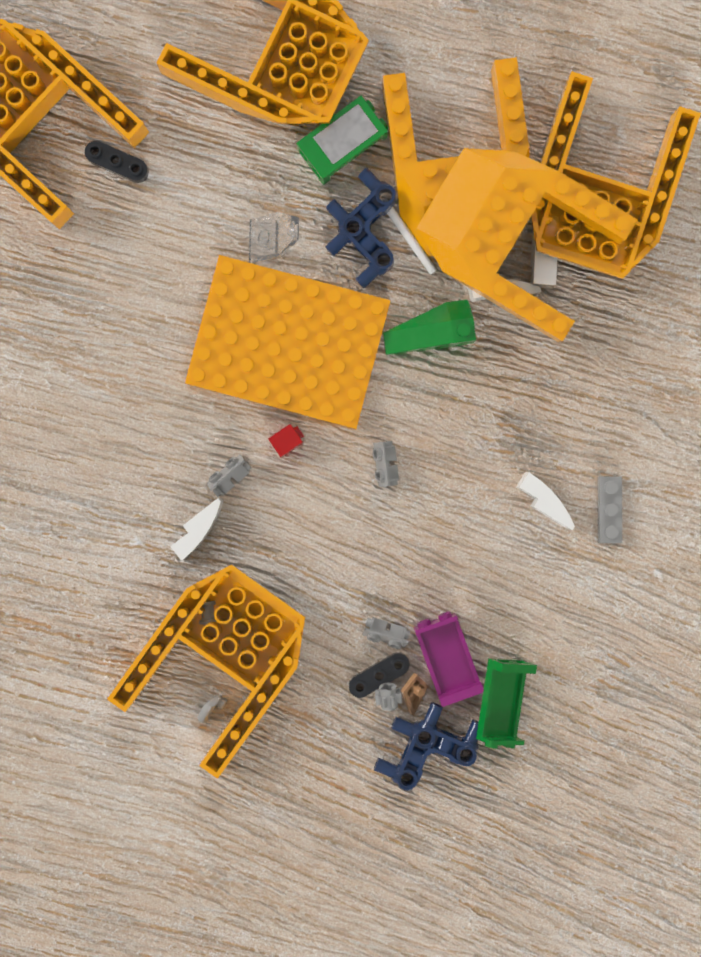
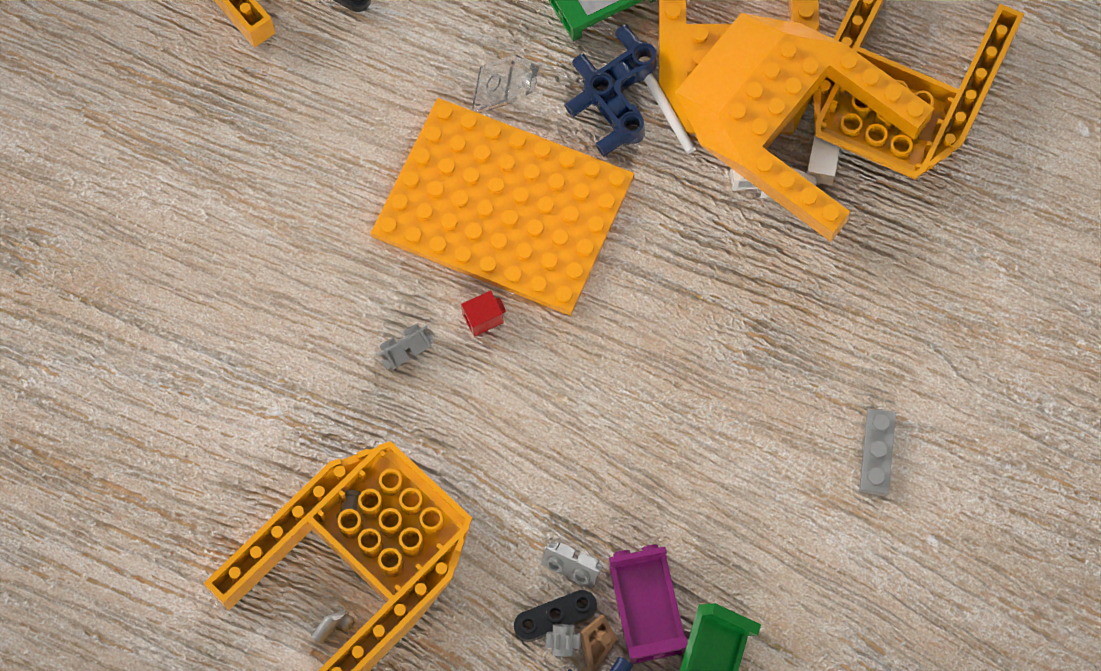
camera: 10 degrees right, 20 degrees down
(197, 529) = (355, 402): white slope -> none
(382, 454) = (600, 346): light grey hinge -> none
(438, 328) = (687, 213): green wedge -> none
(545, 500) = (795, 427): white slope -> none

